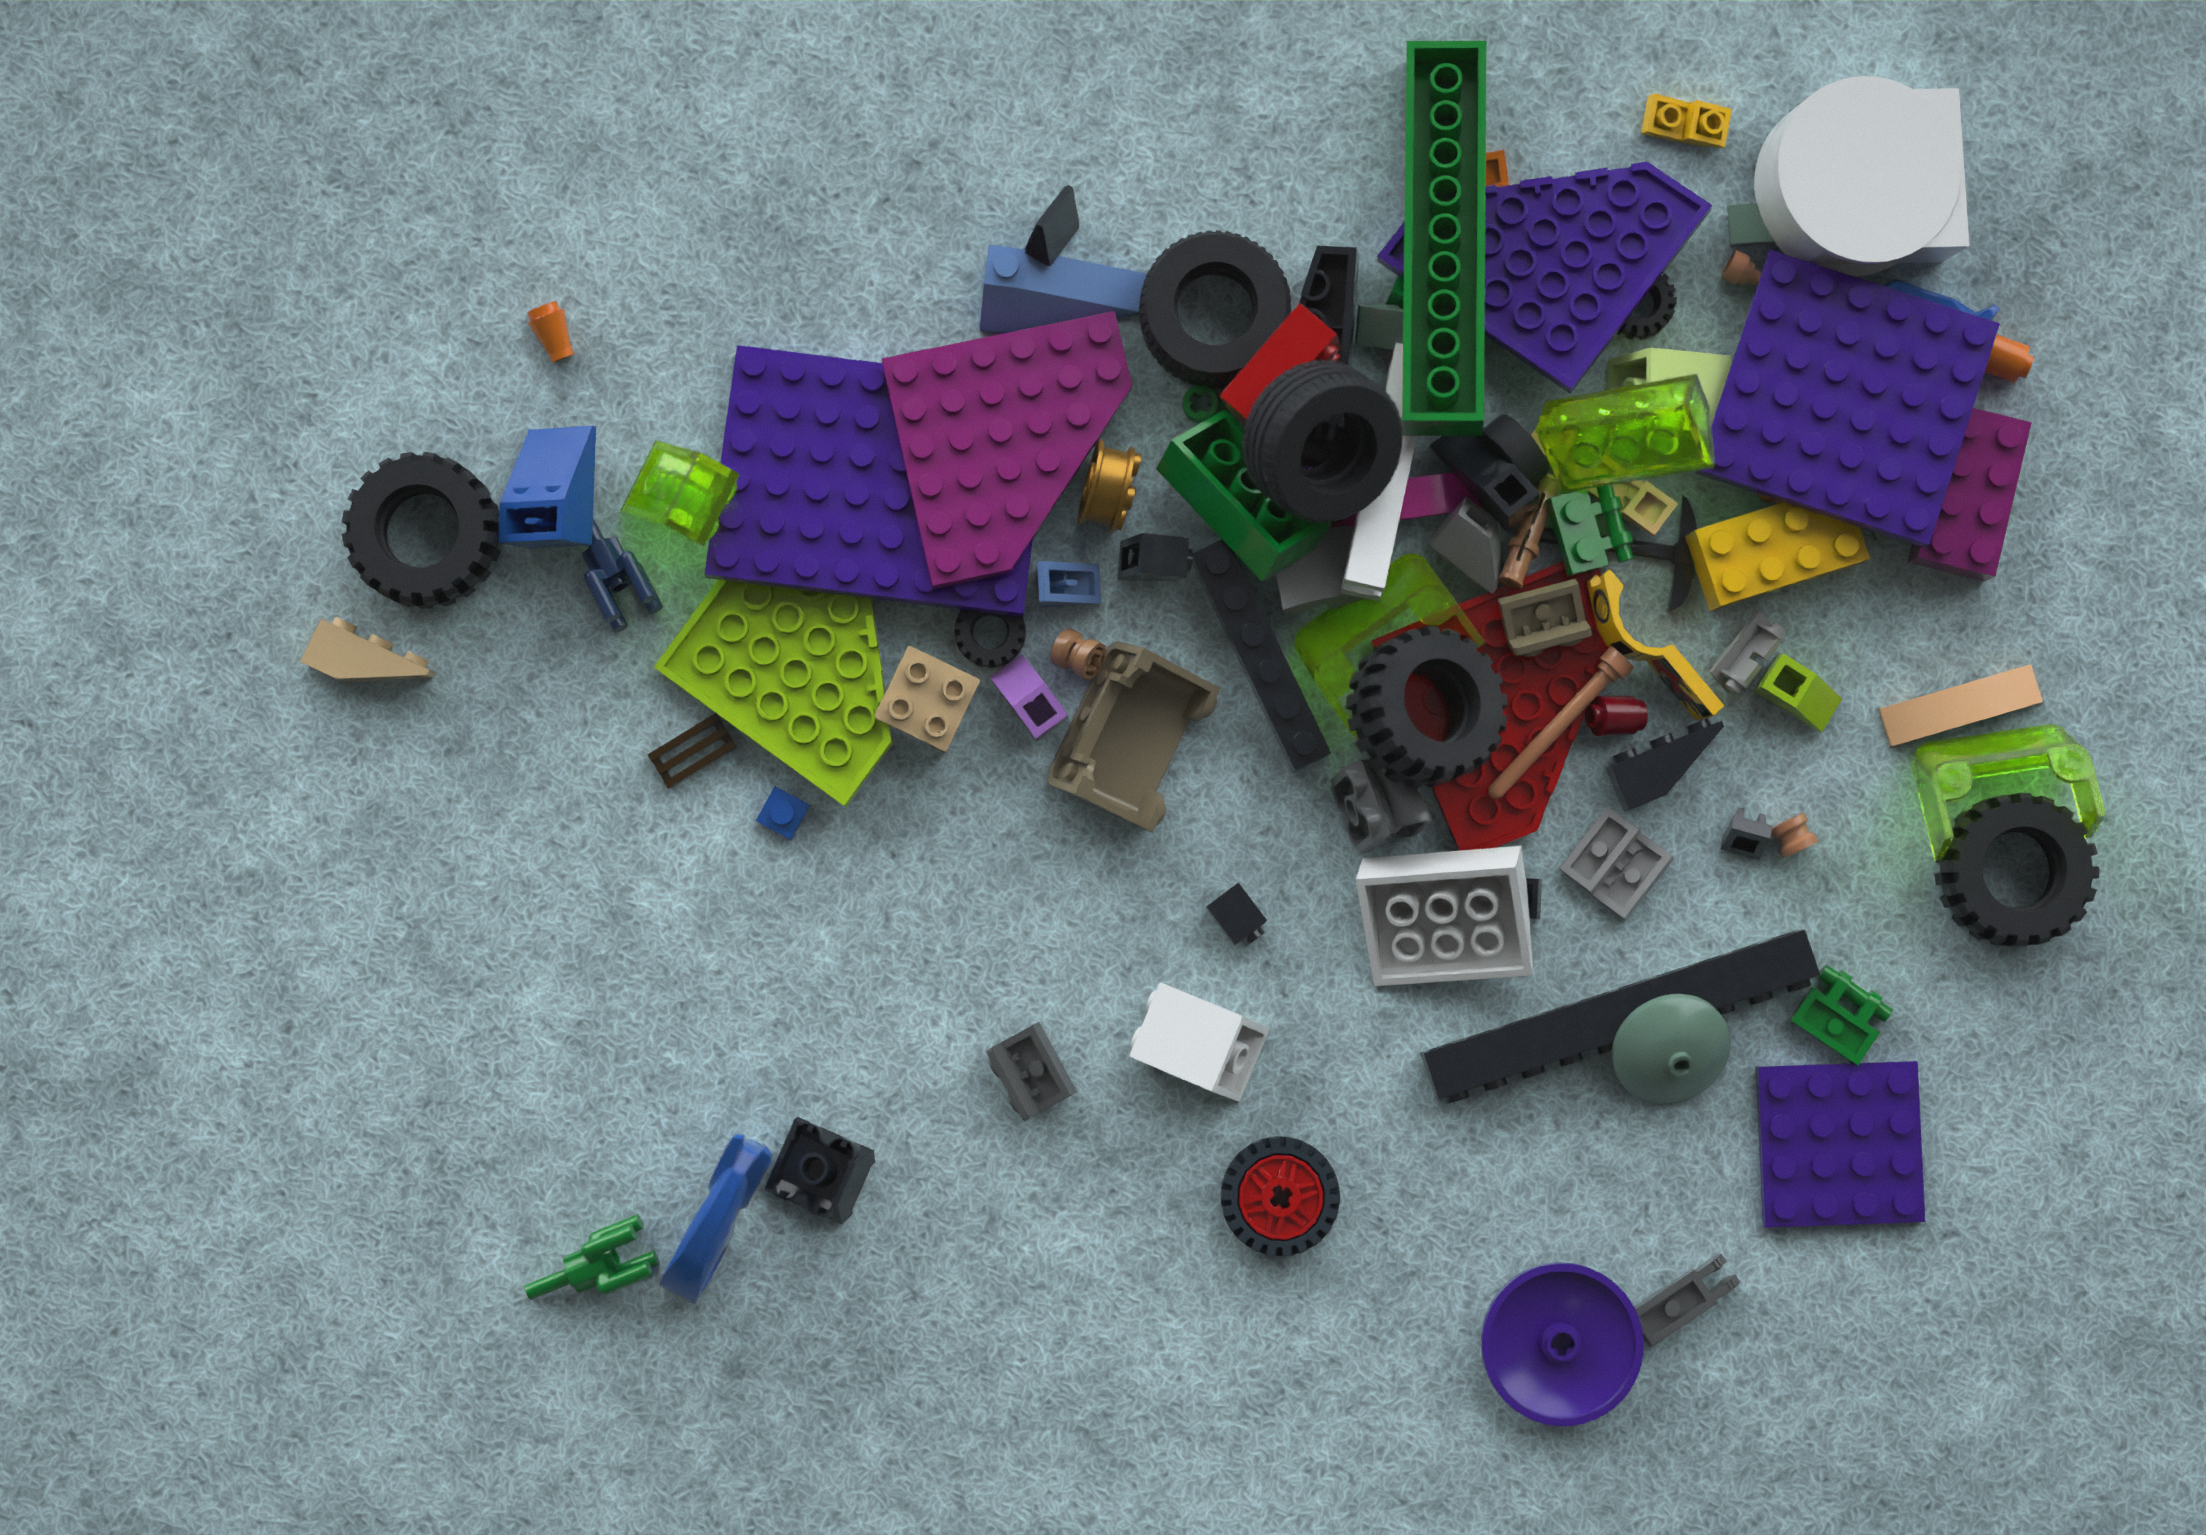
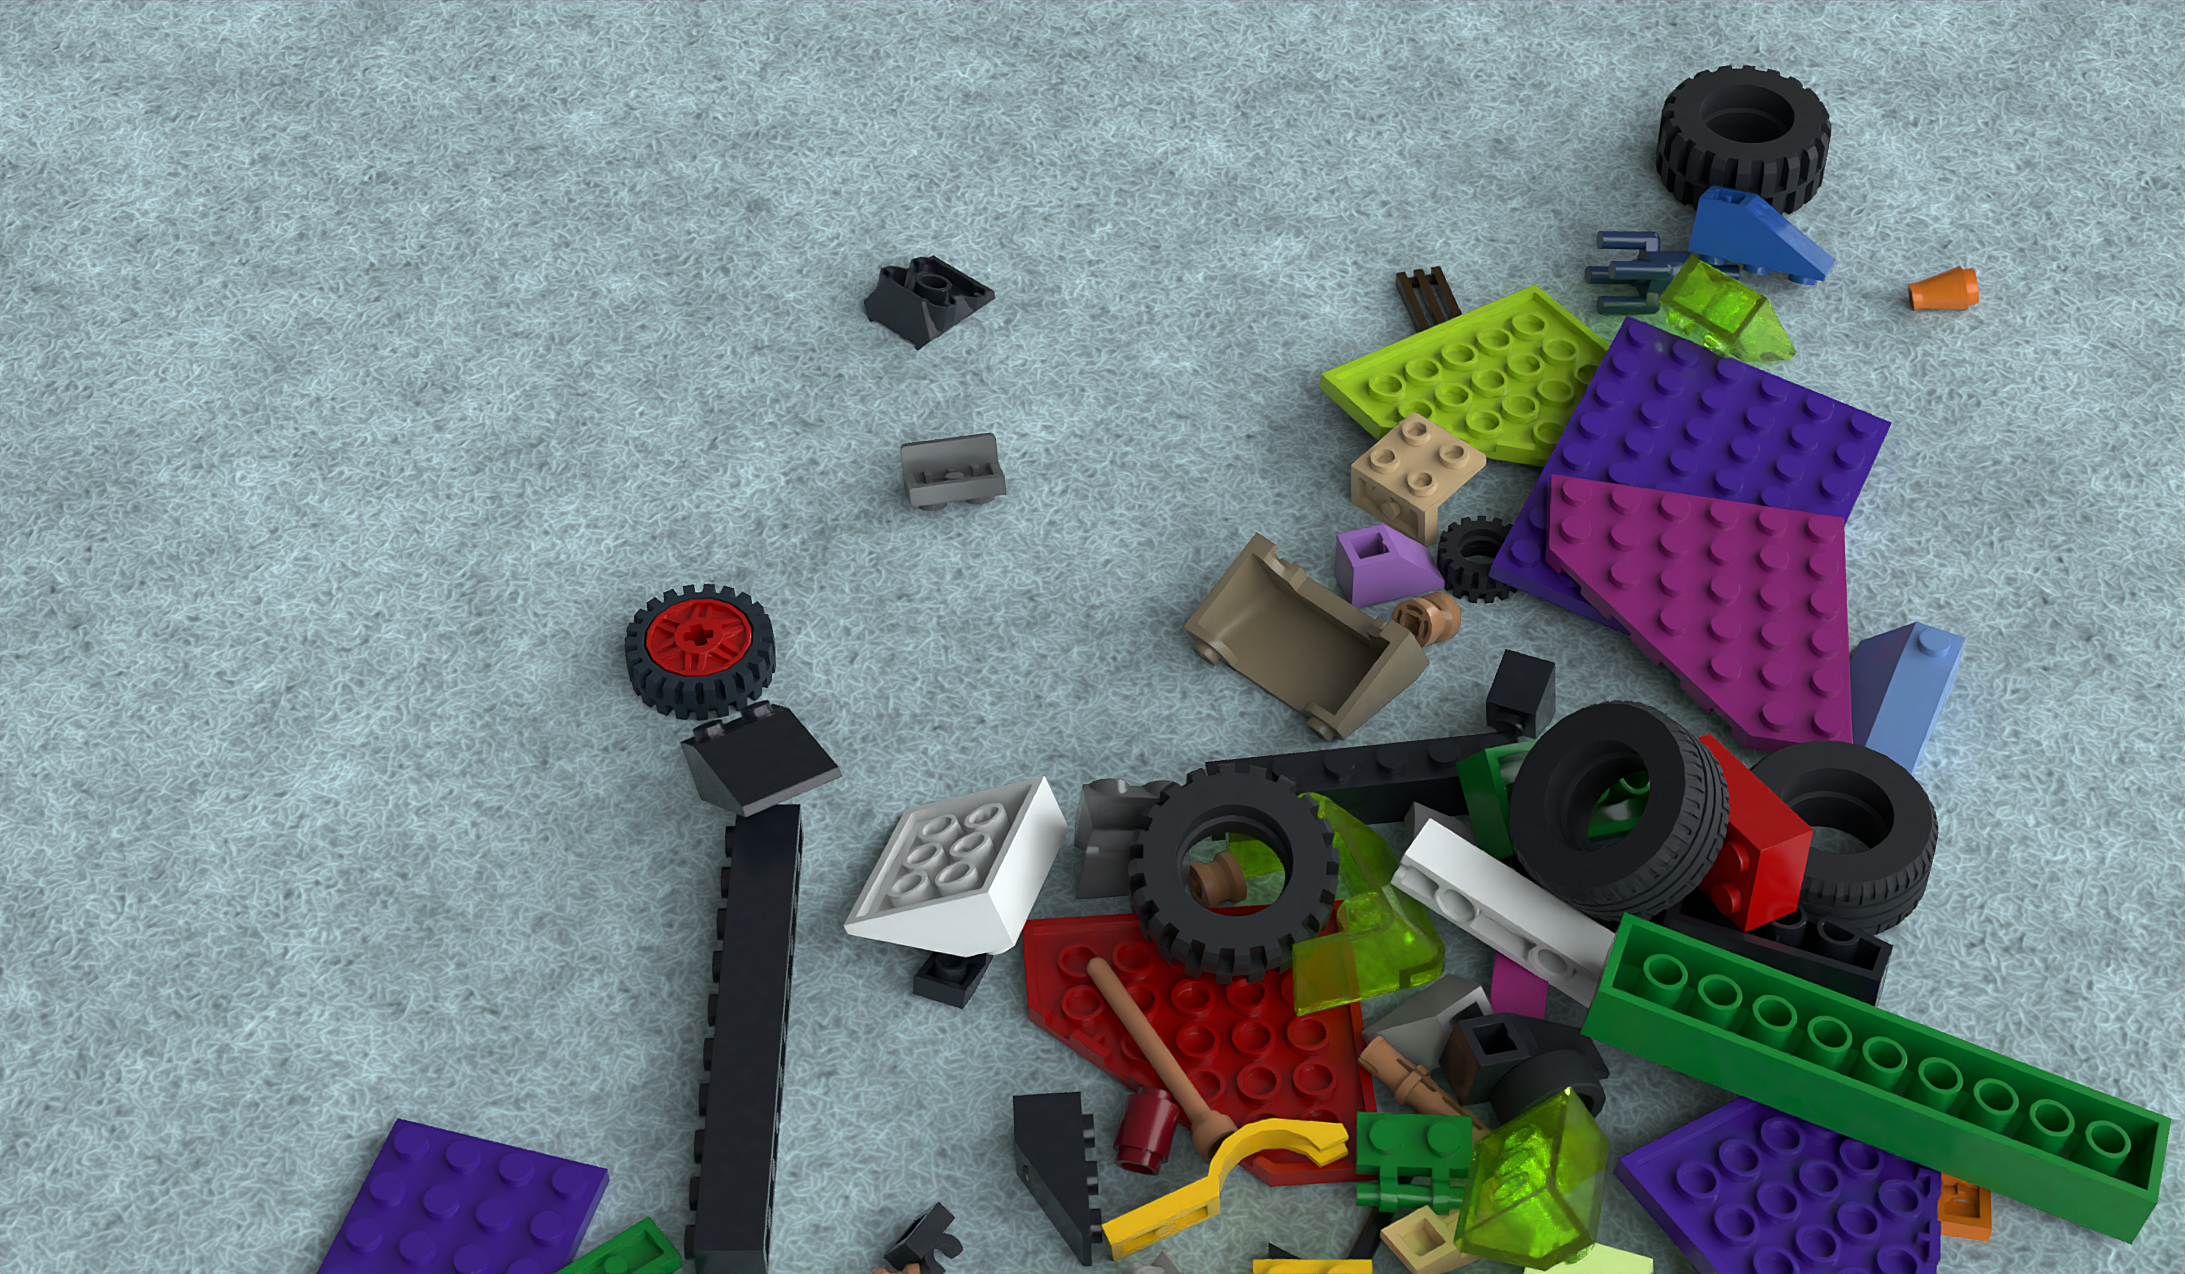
camera: 115 degrees right, 40 degrees down
(350, 658) = (1624, 83): tan slope -> none
(599, 1263) = (916, 121): green plant -> none
(713, 1225) = (904, 168): blue animal -> none
(783, 813) = (1330, 352): blue plate -> none
(1054, 228) = (1976, 710): black slope -> none
(1068, 584) = (1517, 619): medium blue slope -> none
(1108, 486) = (1628, 666): pearl gold wheel -> none
(1198, 1041) = (911, 620): white slope -> none
(1237, 915) = (1051, 691): black brick -> none
(1404, 1093) = (756, 759): none -> black slope
(1544, 618) = (1306, 1066): dark tan bracket -> none
(1562, 1344) = (377, 855): dark purple dish -> none
(1616, 863) = (946, 1093): light grey slope -> none
(1664, 1033) = (678, 1064): sand green dish -> none
(1682, 1301) = (357, 1002): dark grey hinge -> none

